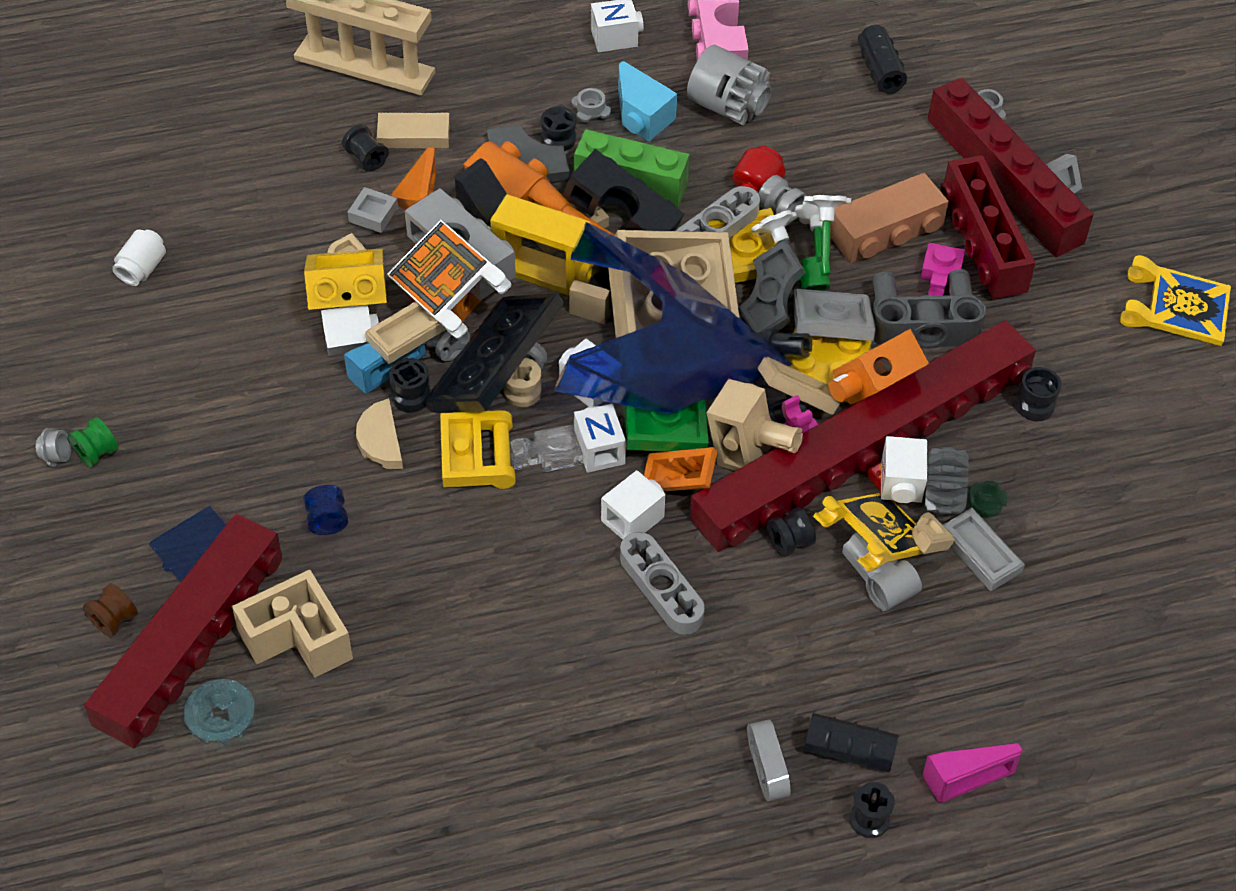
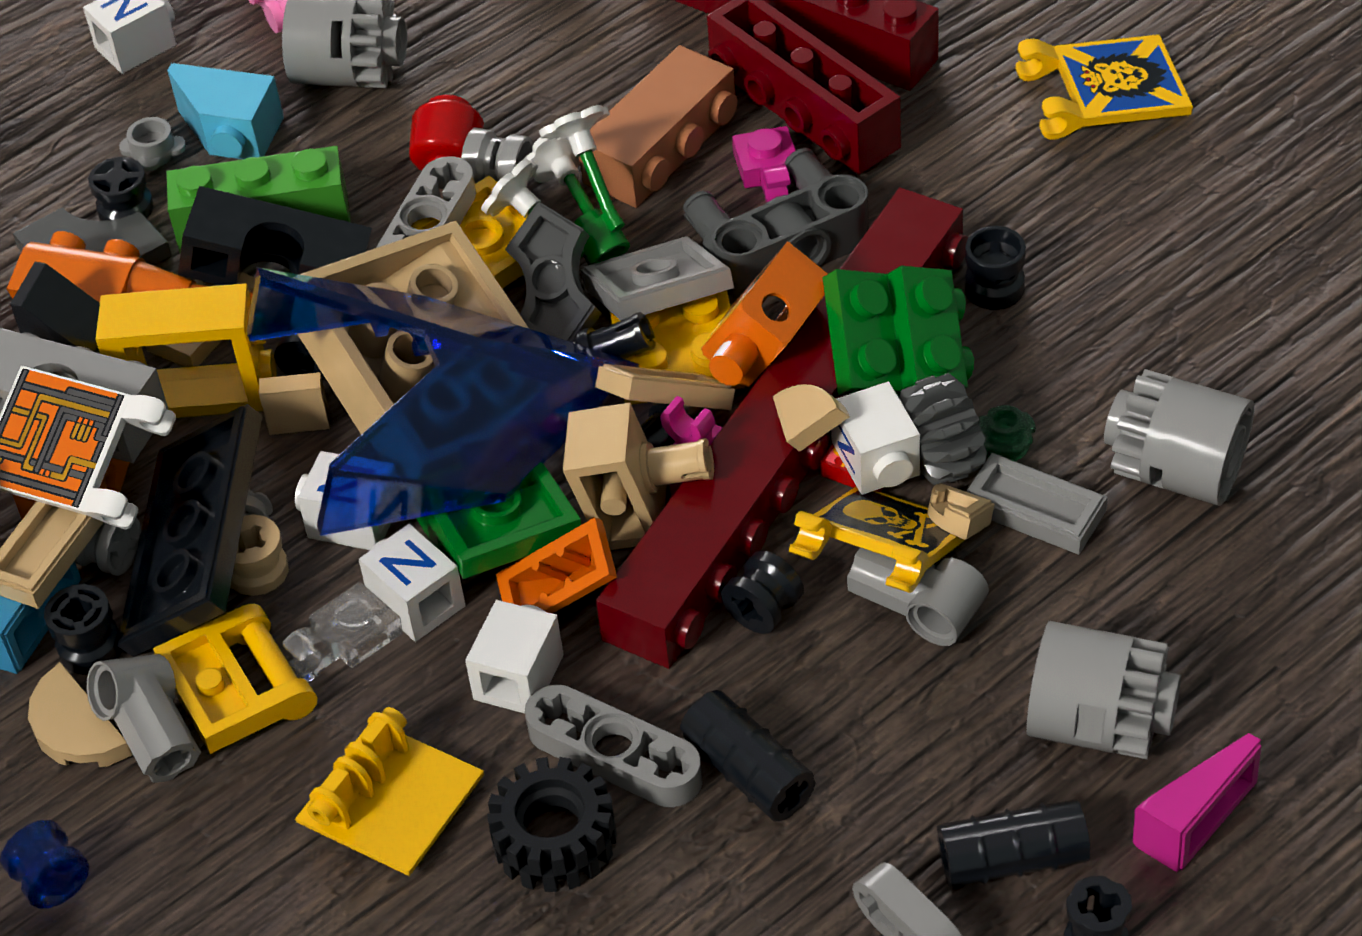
camera: 20 degrees left, 5 degrees down
(418, 441) = (140, 699): none -> light grey piece
(526, 555) = (389, 794): none -> yellow hinge
(597, 632) = (554, 856): none -> black tyre
(731, 623) = (748, 755): none -> black axle
(868, 439) = (807, 414): none -> tan tile
(948, 678) = (1101, 690): none -> light grey gear
(951, 409) = (895, 327): none -> green plate
(1085, 548) = (1179, 436): none -> light grey gear

